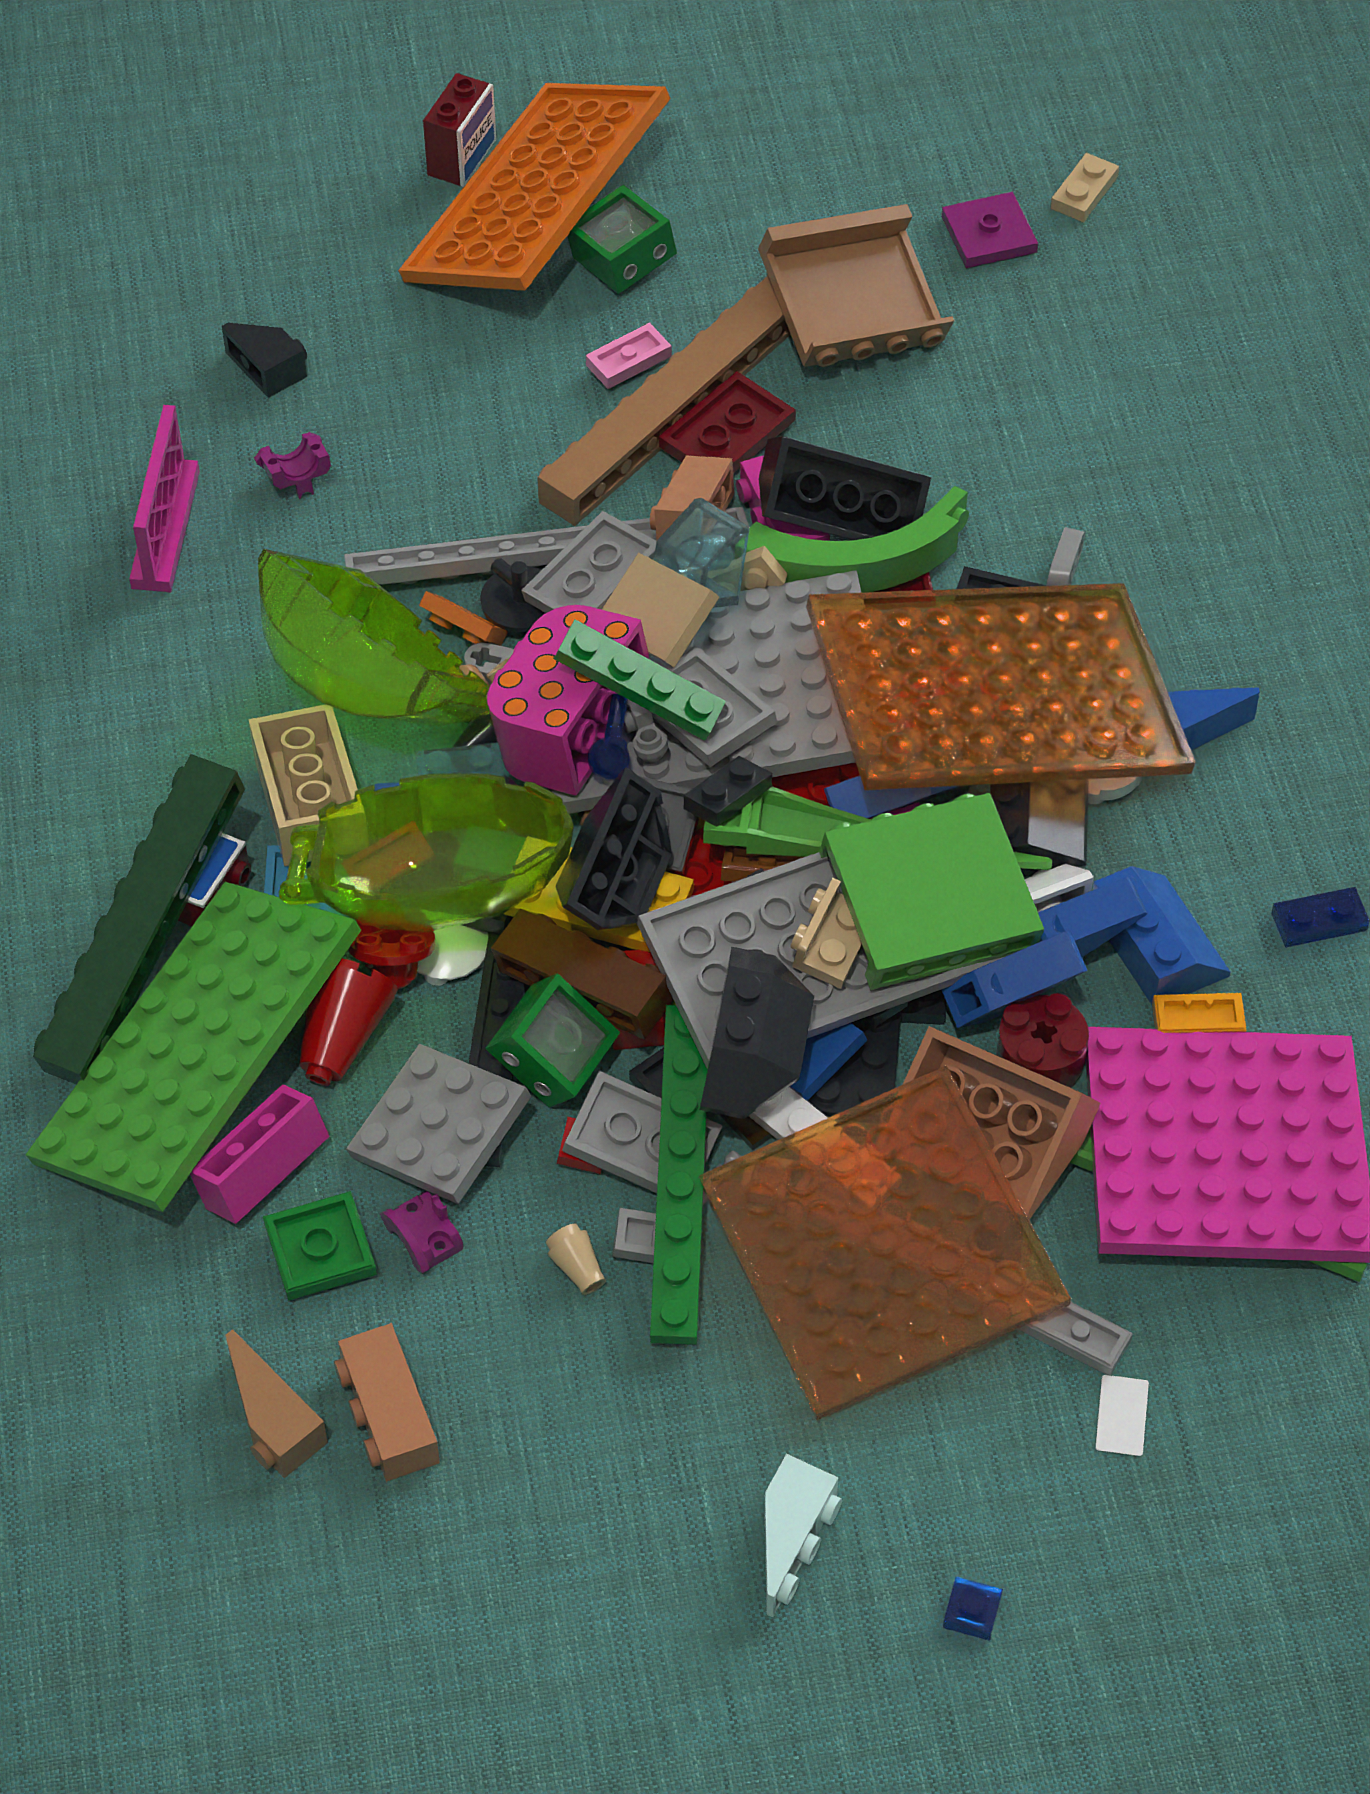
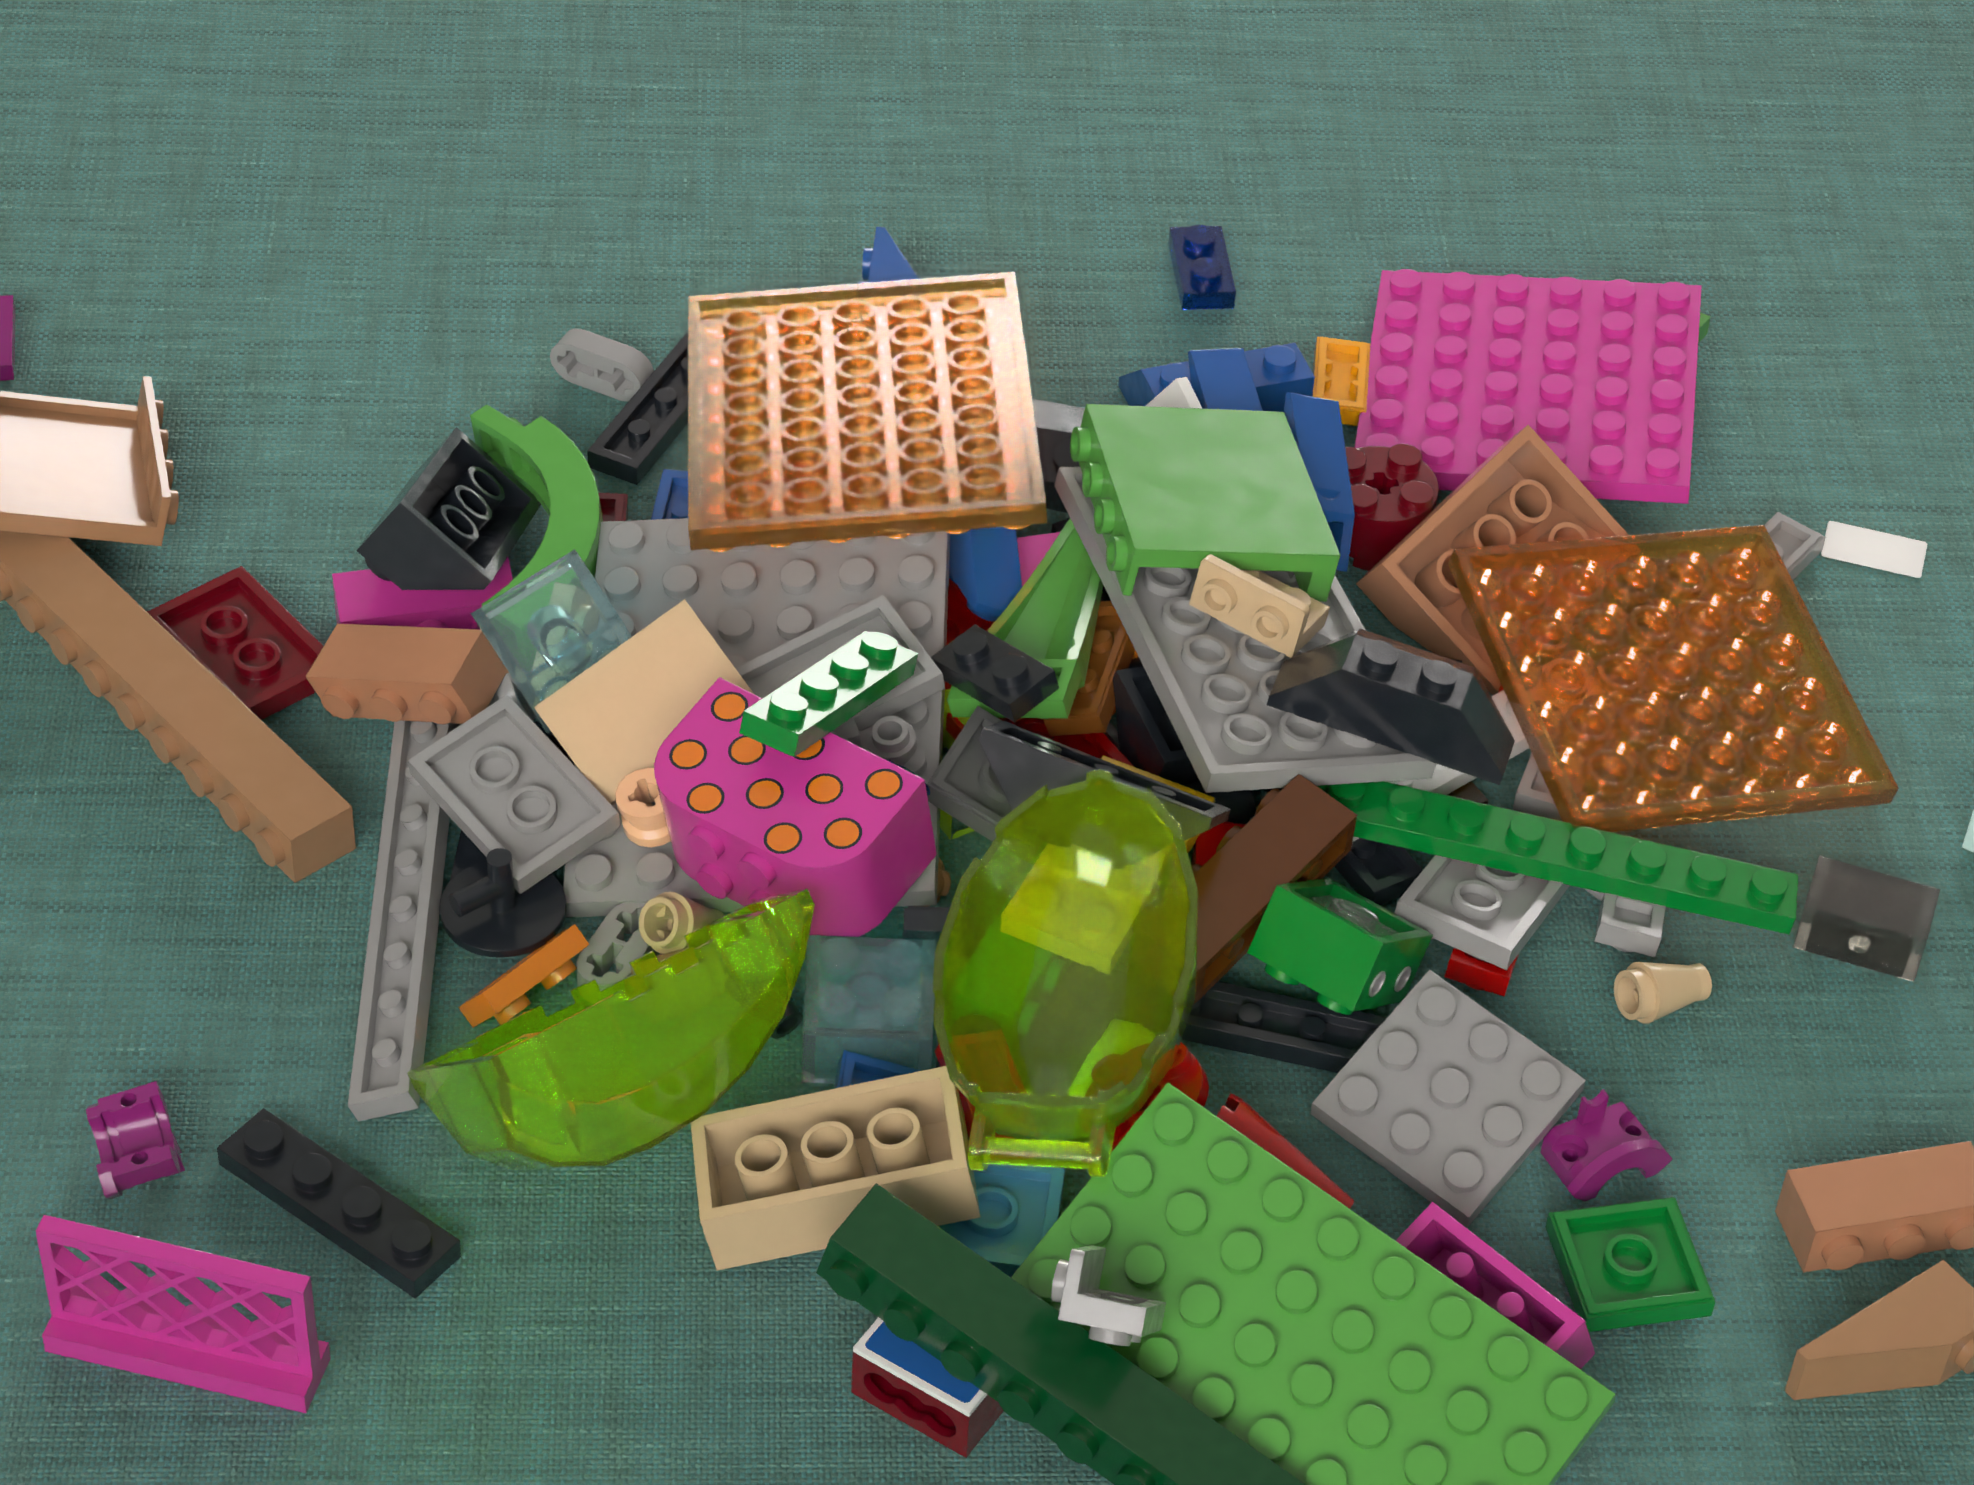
camera: 85 degrees left, 10 degrees down
(177, 906) = (1111, 1315): none -> light grey bracket
(303, 537) = (339, 1202): none -> black plate
(628, 355) = (52, 732): bright pink plate -> none
(671, 1391) = (1866, 918): none -> clear smoke brick

